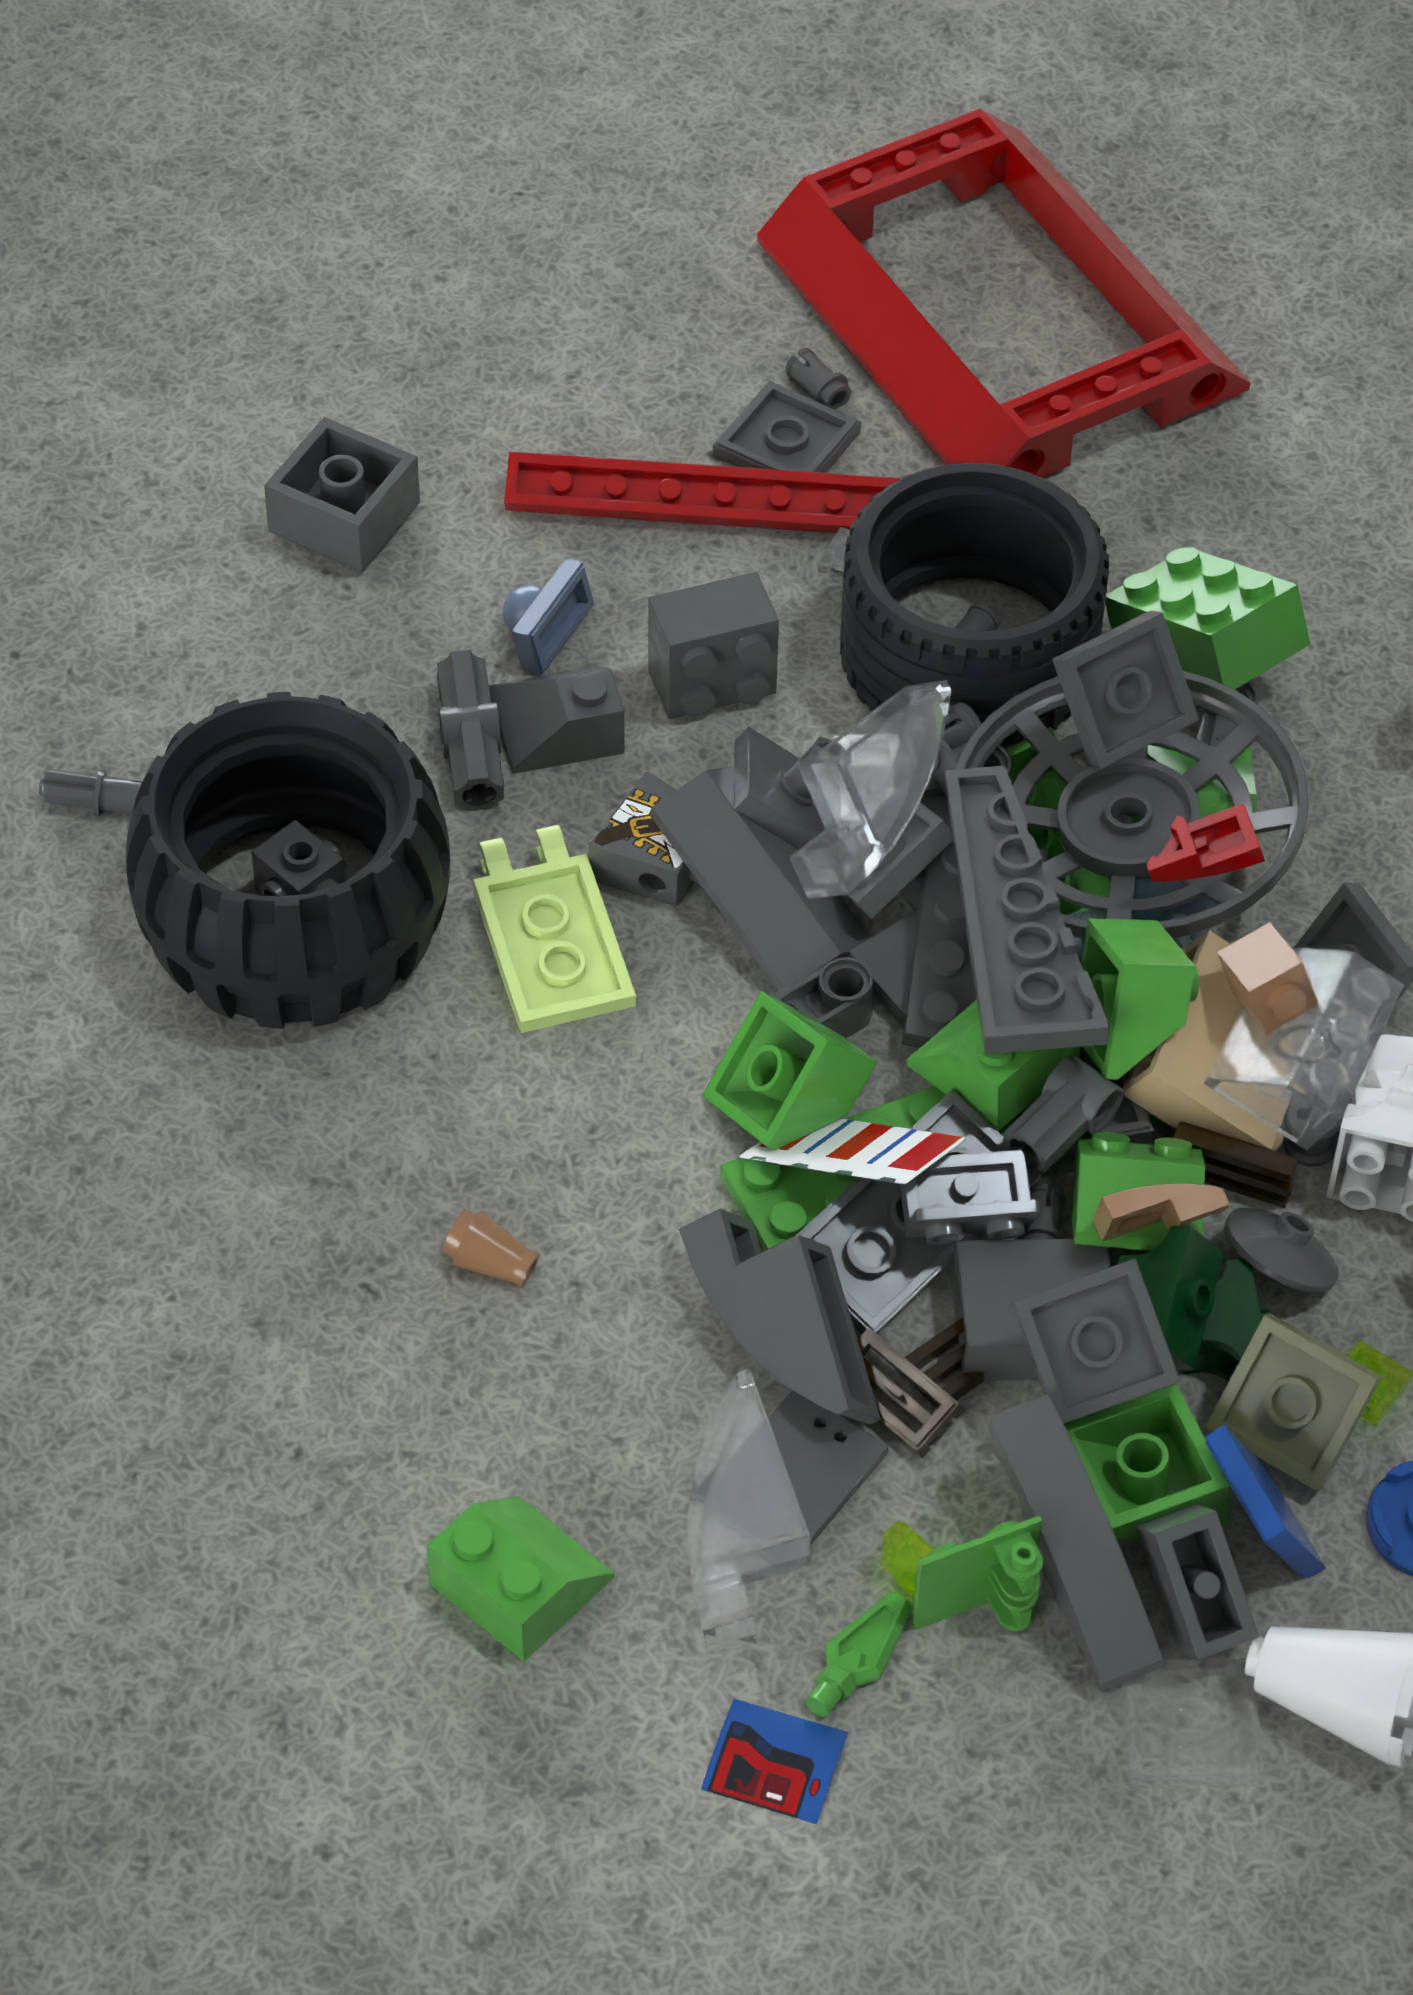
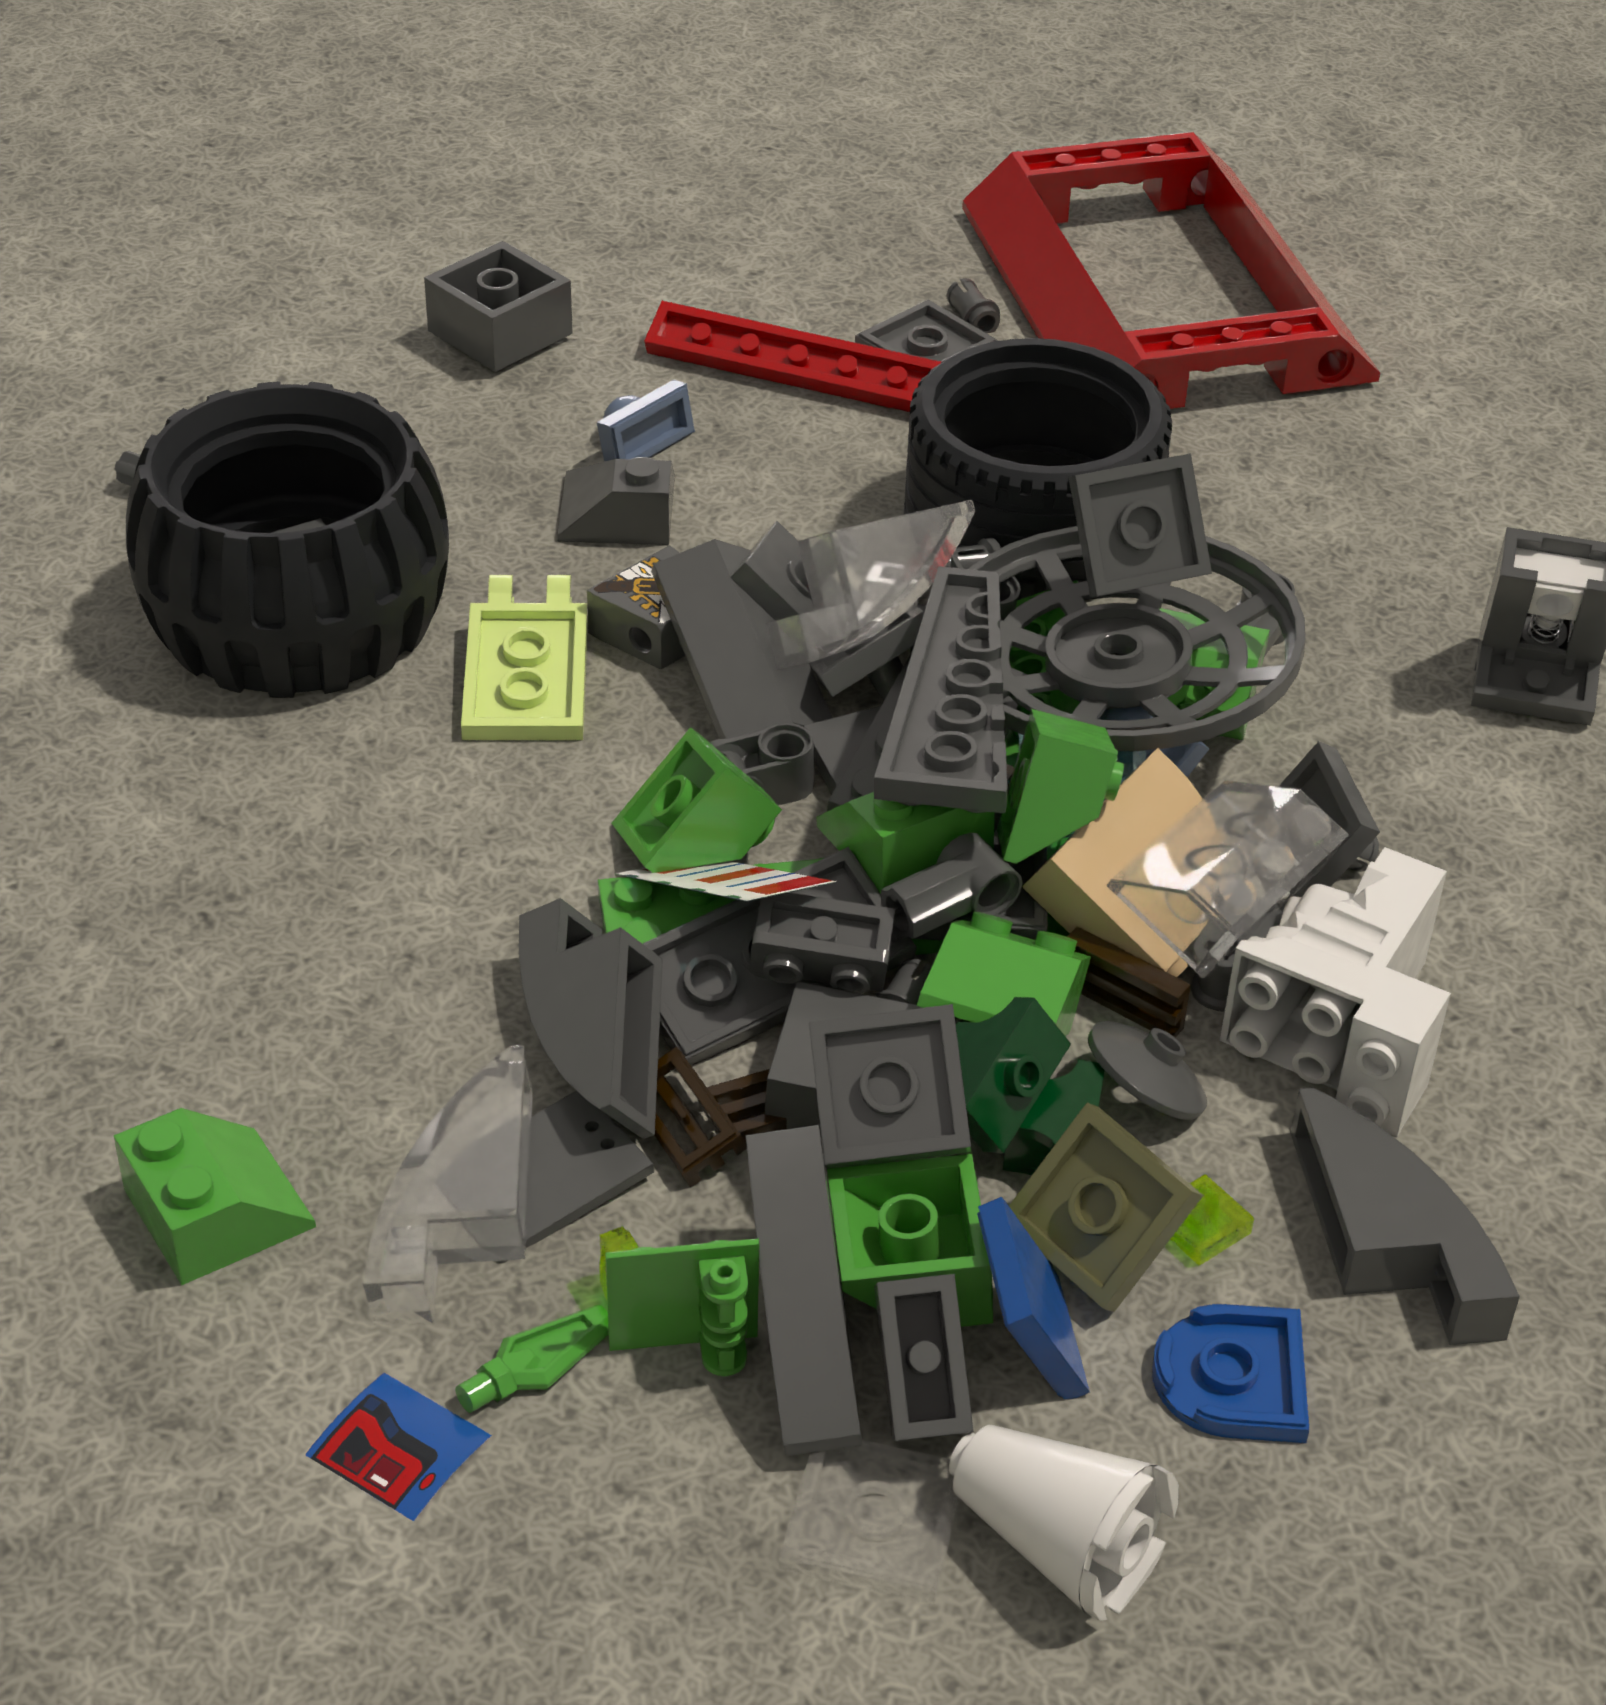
camera: 15 degrees right, 10 degrees down
(470, 731) = (528, 497): dark grey piece -> none
(488, 1249) = (329, 900): medium nougat cone -> none
(713, 645) = (778, 463): dark grey brick -> none
(1151, 1204) = (998, 975): medium nougat slope -> none
(1207, 847) = (1177, 674): red slope -> none
(1219, 614) = (1280, 517): bright green brick -> none
(1268, 978) = (1199, 792): medium nougat brick -> none

